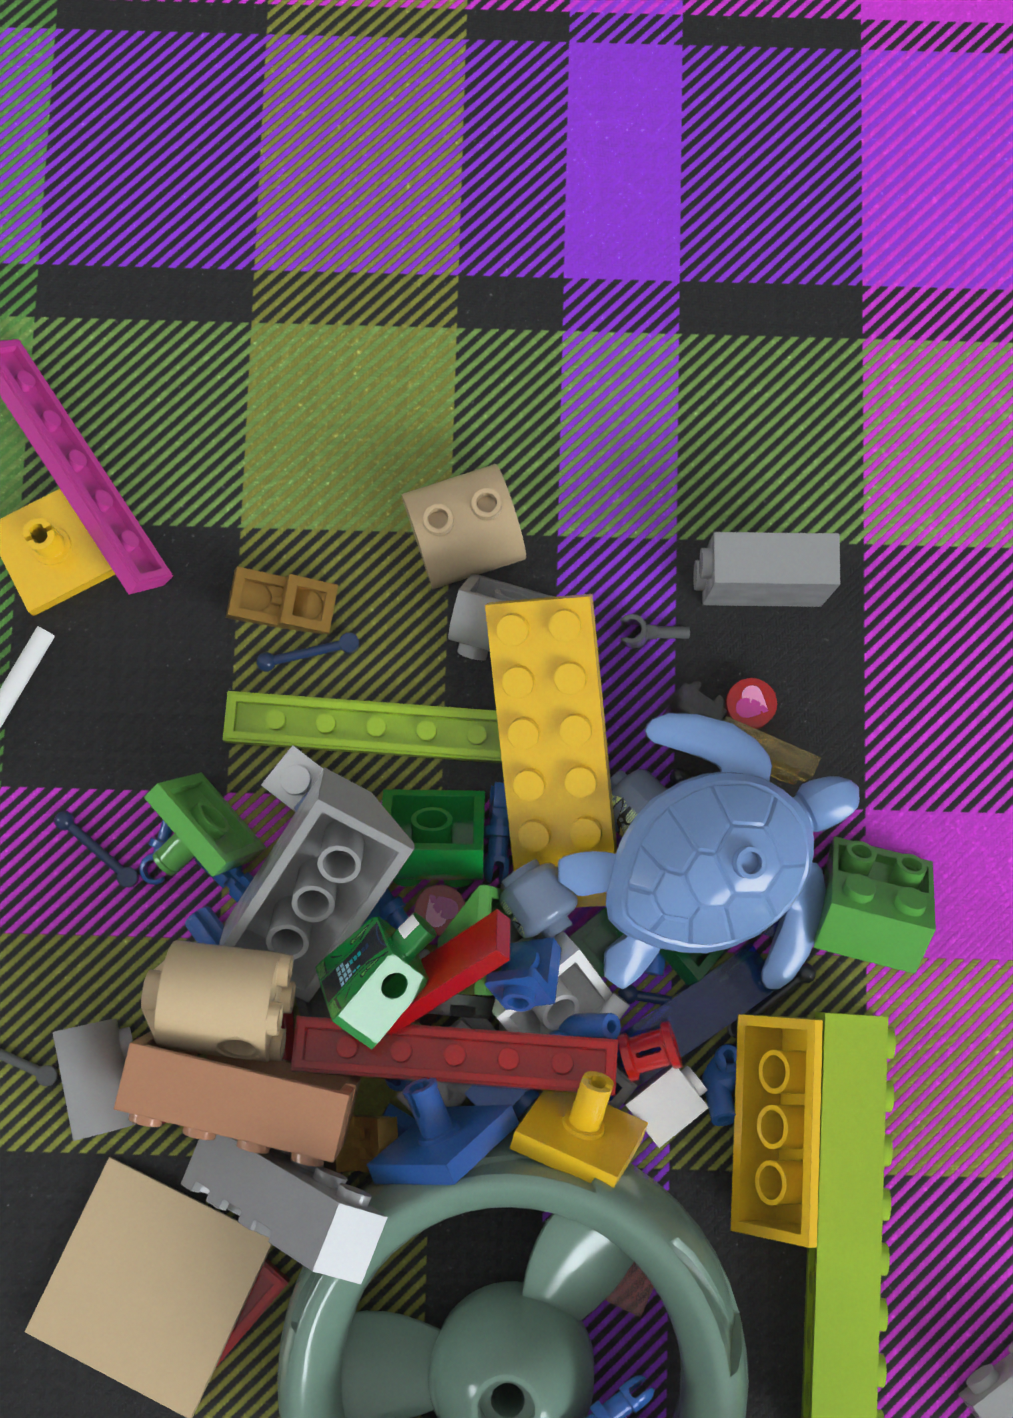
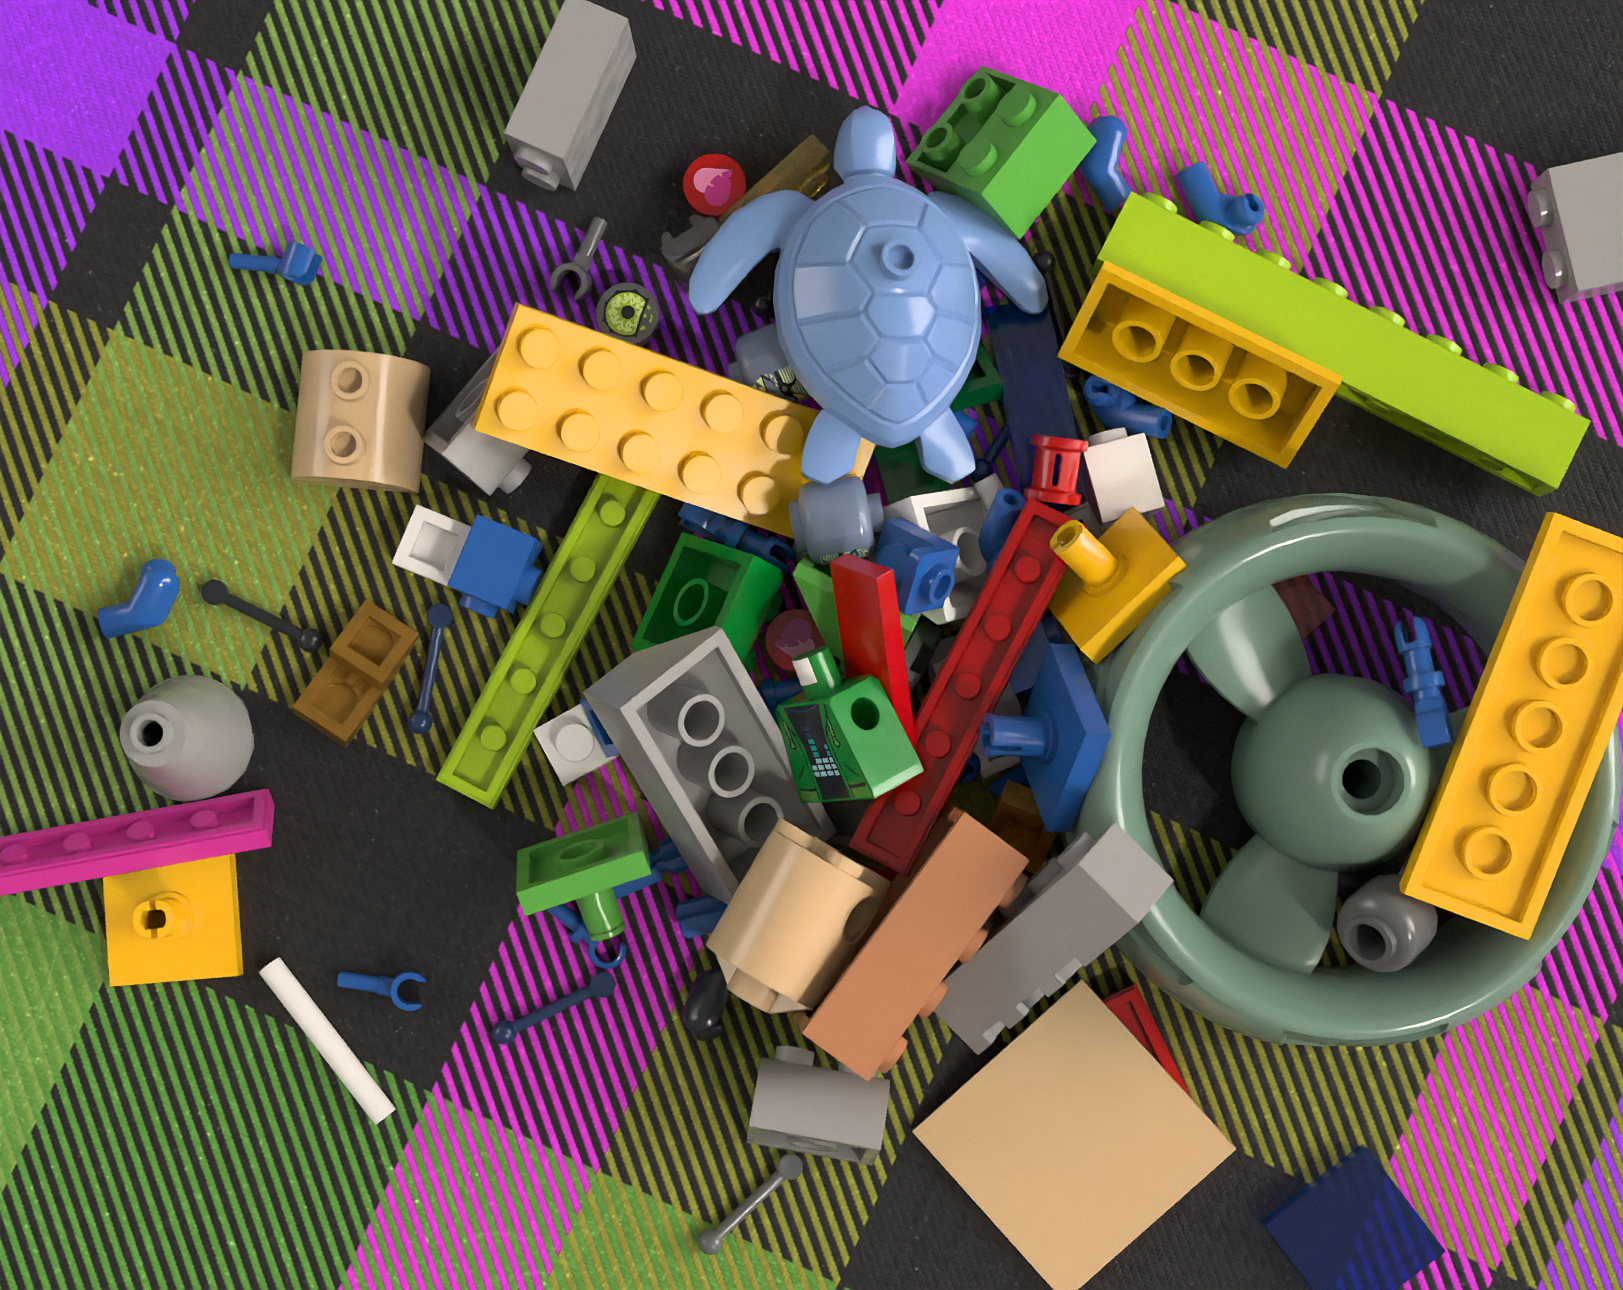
camera: 65 degrees left, 5 degrees up
(63, 720) = (382, 985): none -> blue hand
(138, 960) = (706, 1005): none -> black arm
(184, 501) = (188, 738): none -> light grey cone
(270, 435) = (148, 605): none -> blue arm
(299, 480) = (218, 593): none -> black hinge
(396, 617) = (431, 545): none -> white plate
(398, 667) = (496, 568): none -> blue brick
(558, 432) = (297, 264): none -> blue hand
(627, 682) = (628, 313): none -> tile
(902, 984) = (1101, 161): none -> blue arm
(908, 1095) = (1234, 213): none -> blue arm

